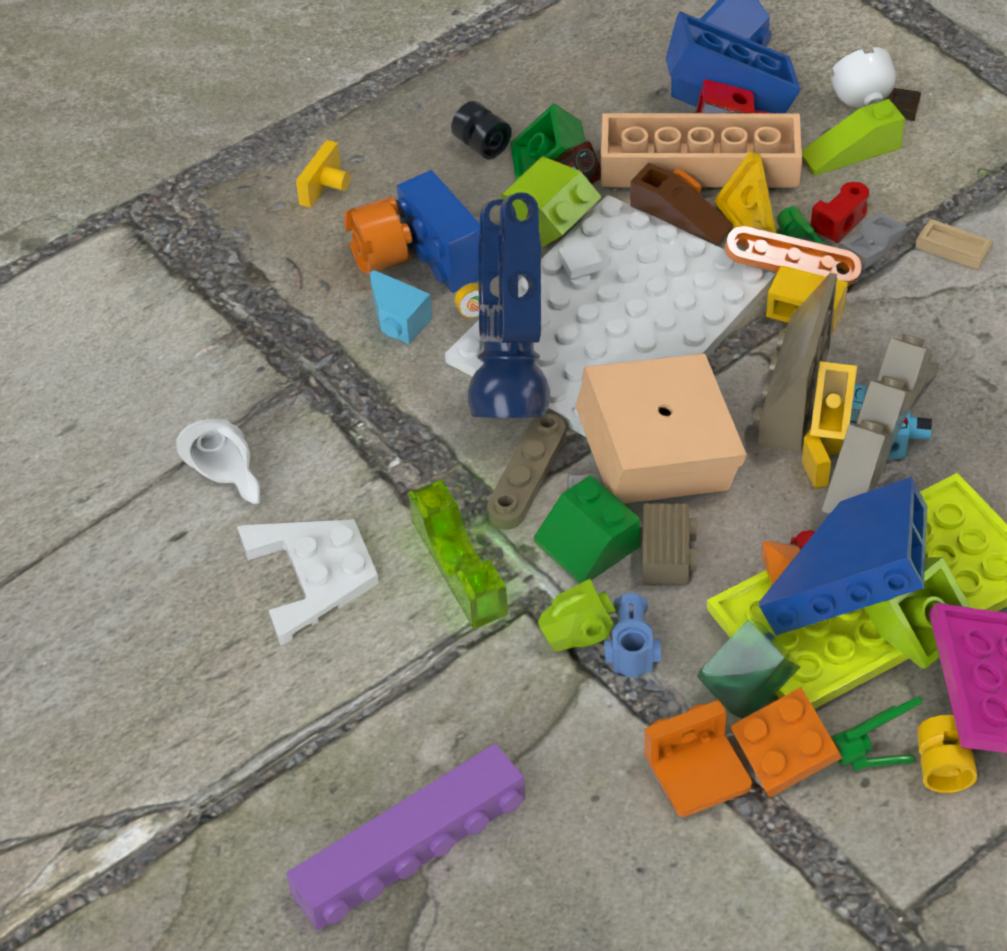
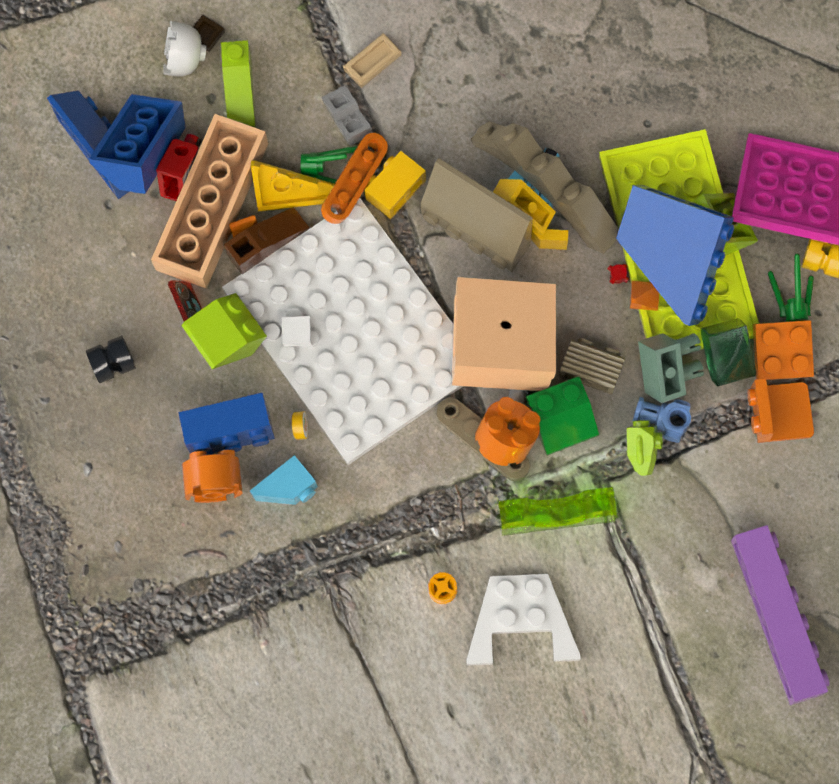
camera: 70 degrees left, 25 degrees up
(219, 454) = (393, 657): white piece -> none
(315, 474) = (445, 583): none -> light orange wheel
(322, 172) = (109, 500): yellow tile -> none
(509, 379) = (400, 400): dark blue piece -> none
(536, 469) = (507, 432): none -> orange brick
(547, 136) = (152, 316): green slope -> none
(690, 600) = (663, 367): none -> sand green brick
(842, 213) = (312, 120): red leg -> none

